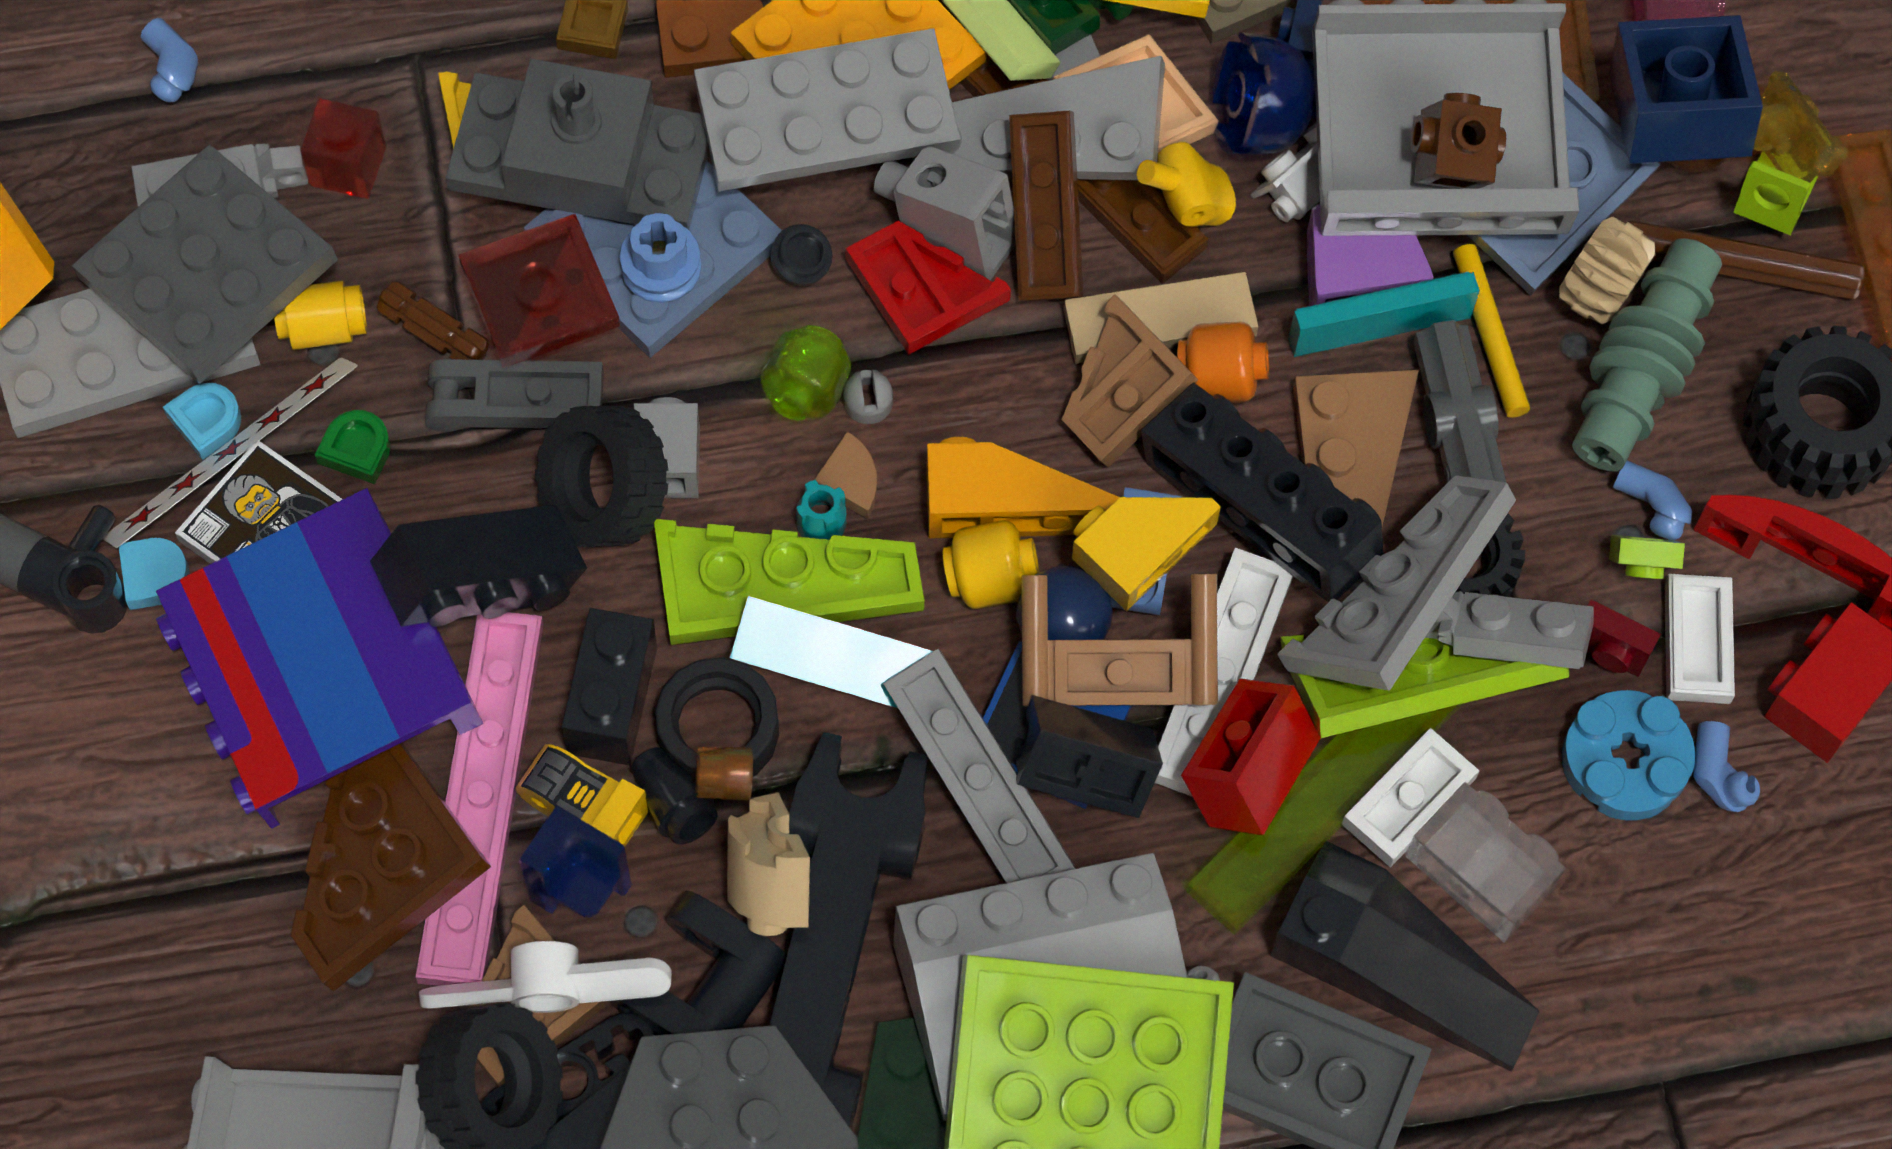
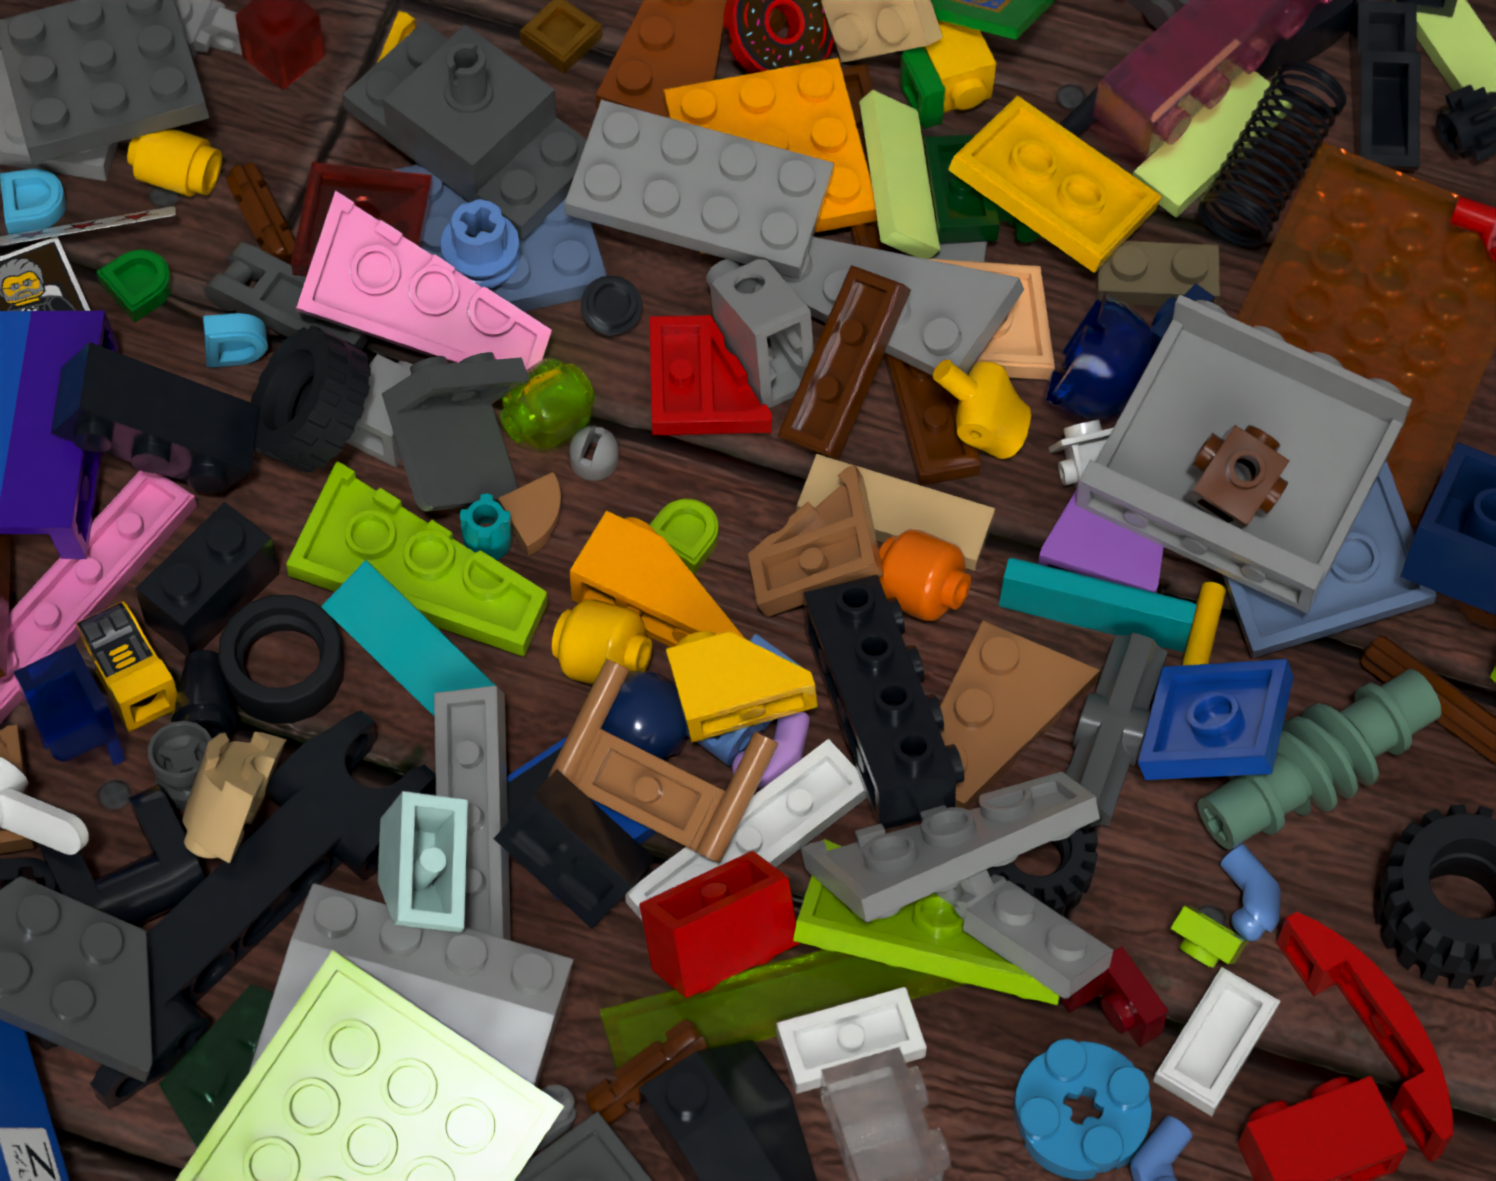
camera: 30 degrees right, 5 degrees down
(484, 456) = (233, 339): none -> medium azure tile
(616, 337) = (401, 294): none -> bright pink wing
(692, 848) = (176, 757): none -> dark grey wheel
(724, 773) = (247, 697): clear orange hose -> none
(745, 442) = (451, 430): none -> dark grey bracket
(981, 837) = (424, 861): none -> light aqua slope
(994, 420) = (689, 530): none -> lime tile
(1178, 604) = (791, 735): none -> lavender arm
(1264, 915) = (611, 1098): none -> reddish brown axle
(1553, 364) = (1216, 720): none -> blue plate
(1607, 270) = (1332, 662): tan gear -> none

